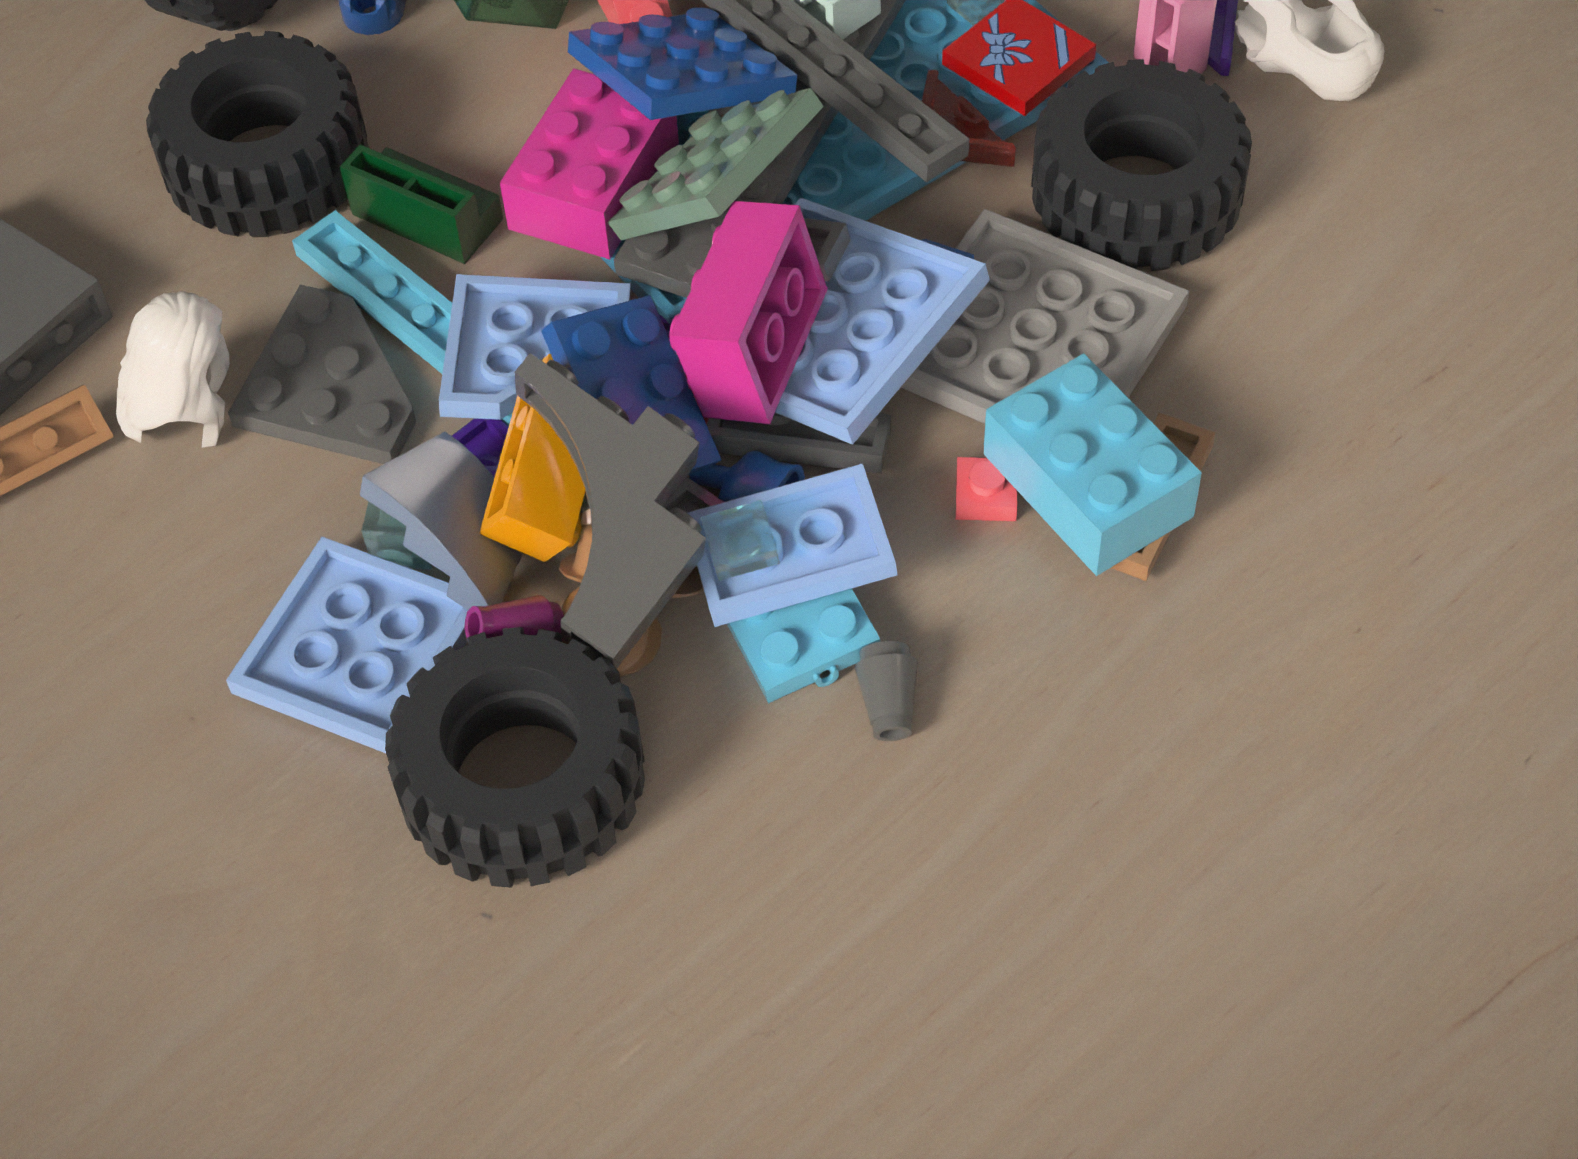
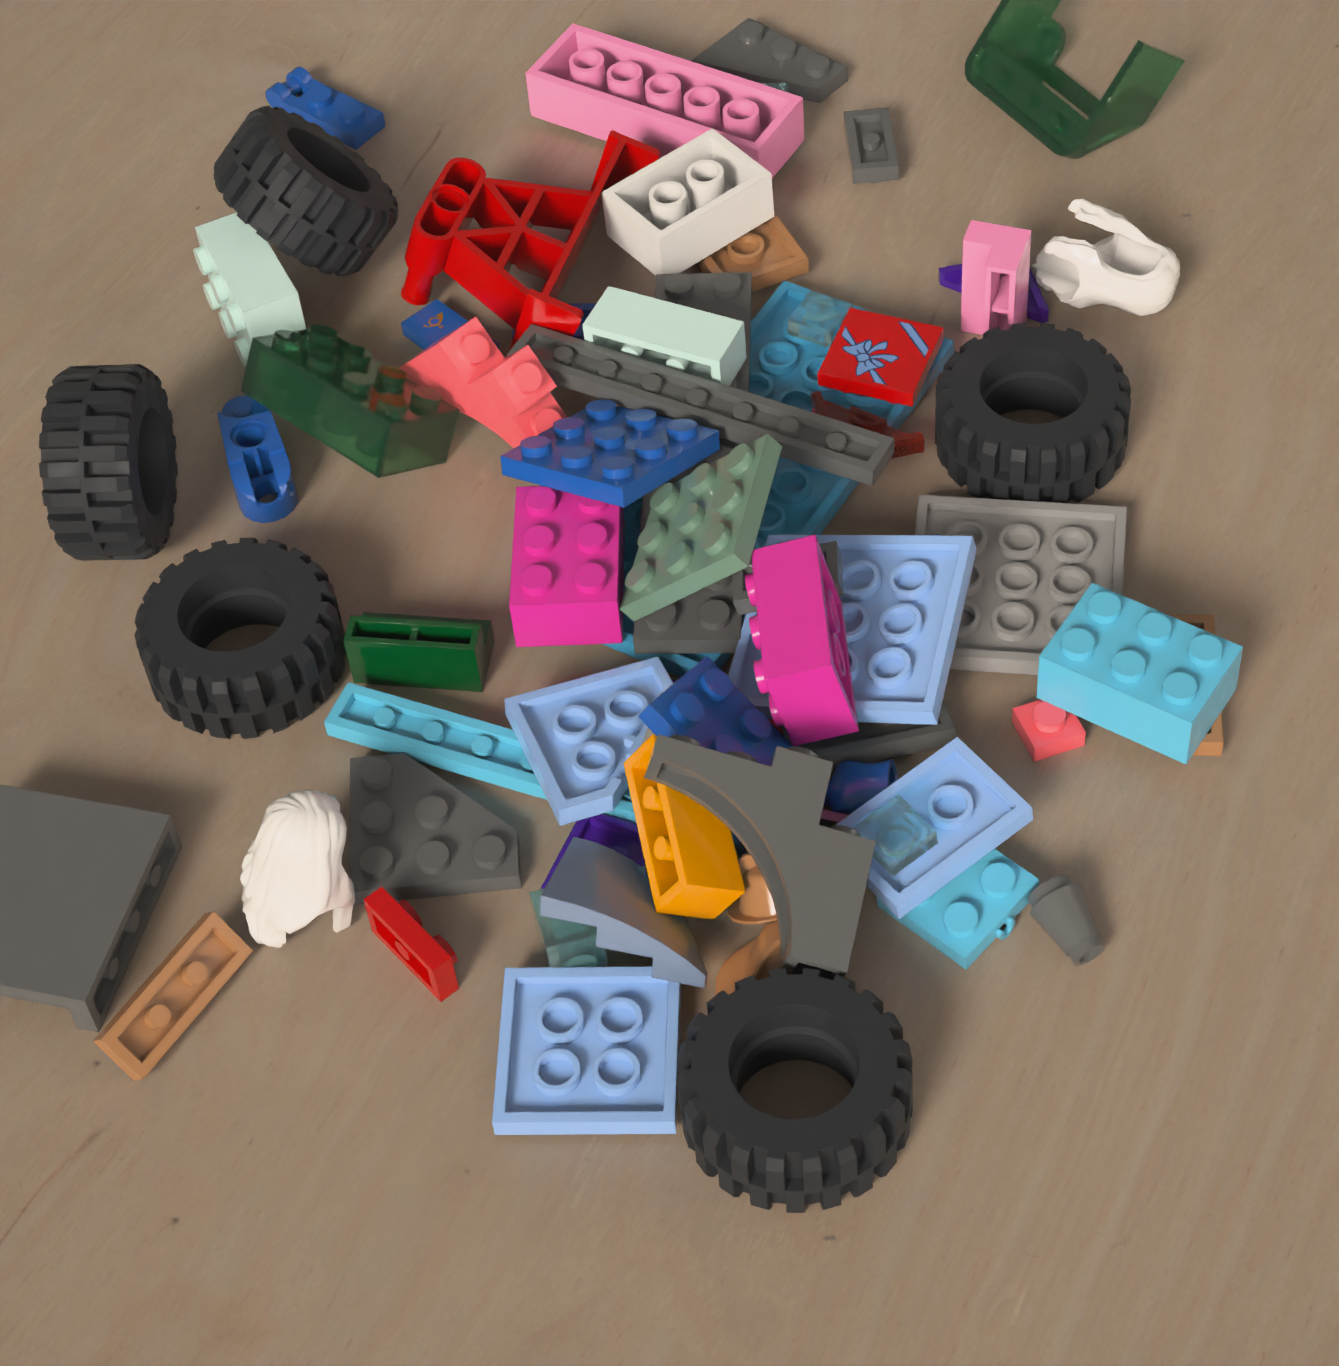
camera: 20 degrees left, 5 degrees down
(261, 500) = (402, 932): none -> red plate
(529, 613) = (730, 968): magenta cone -> none

